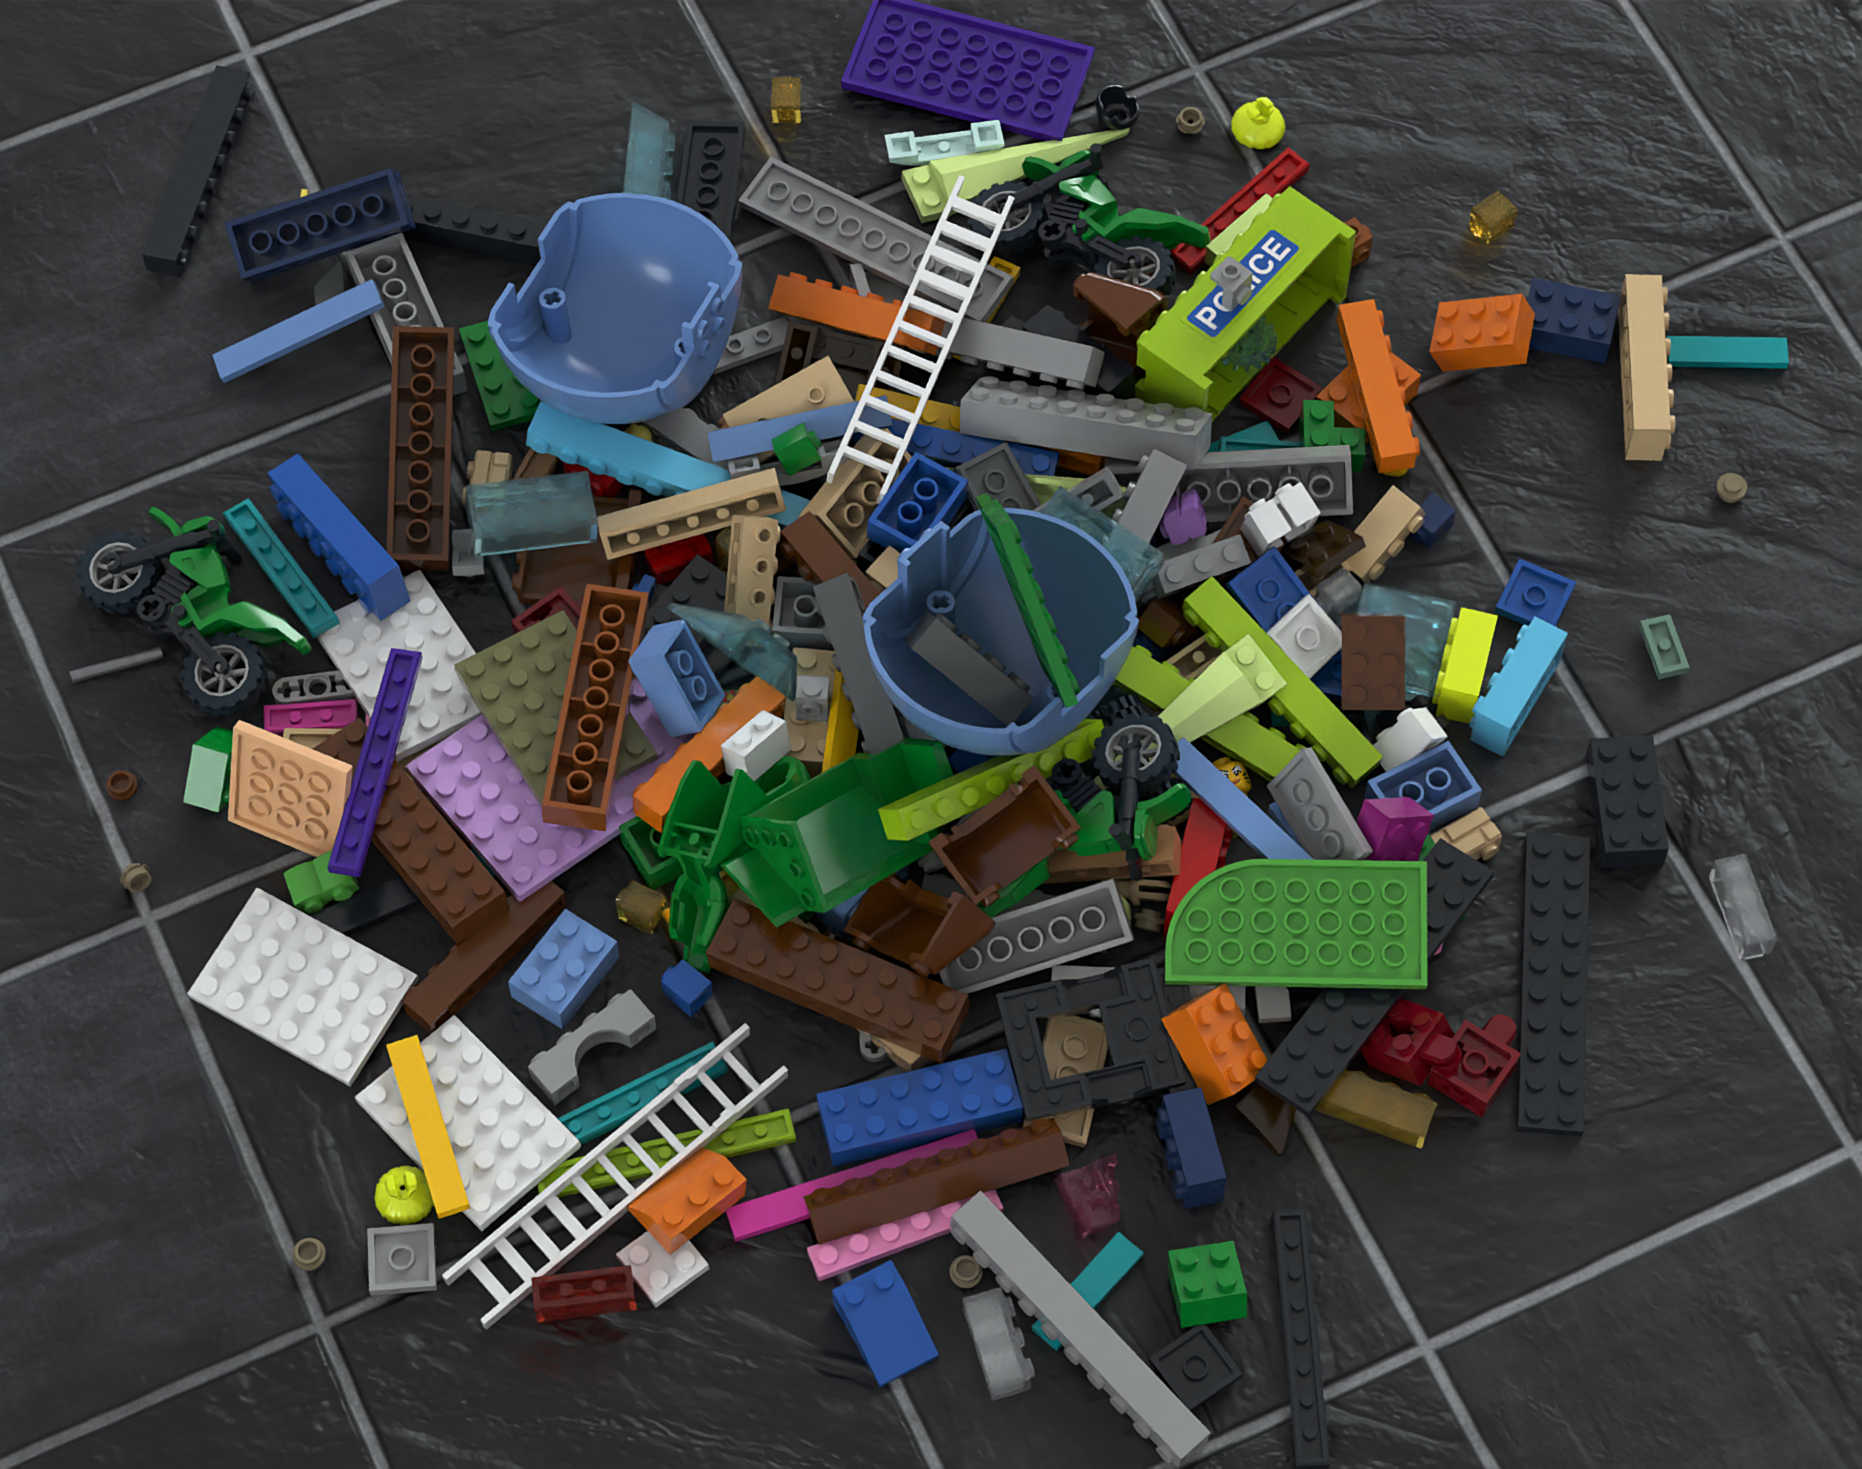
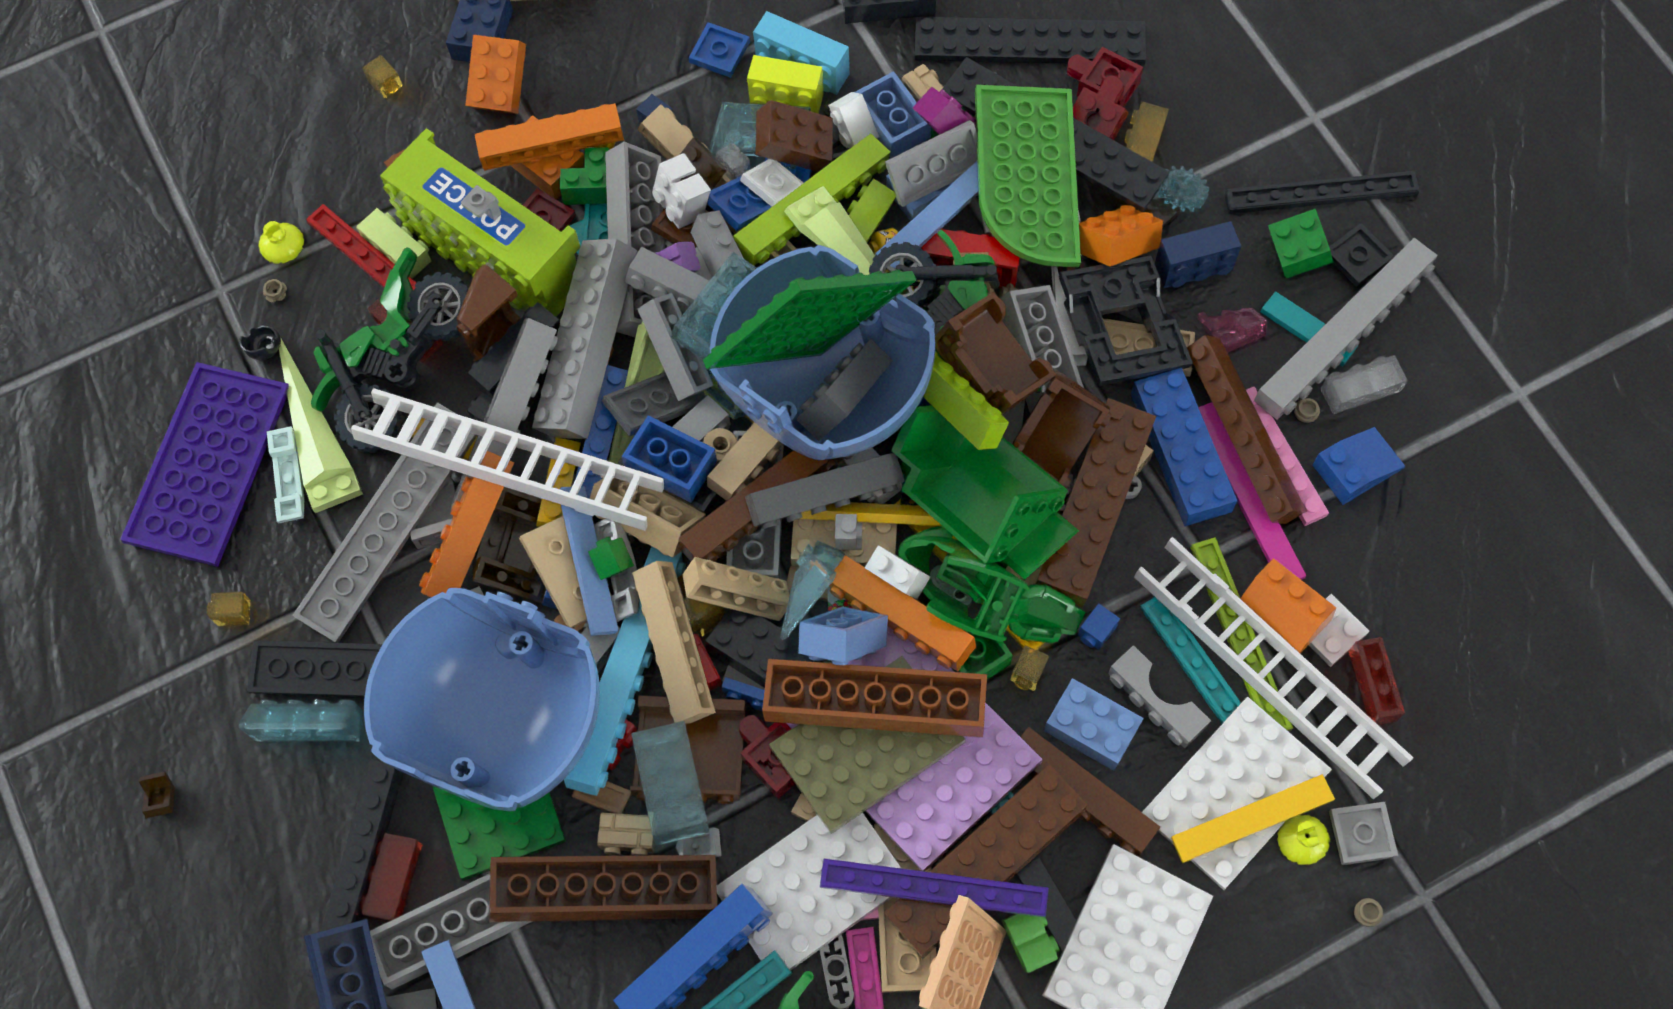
camera: 90 degrees left, 5 degrees up
(465, 264) = (391, 878): none -> clear red brick
(580, 49) = (157, 794): none -> dark brown bracket
(1291, 1143) = (1184, 189): none -> clear light blue gear

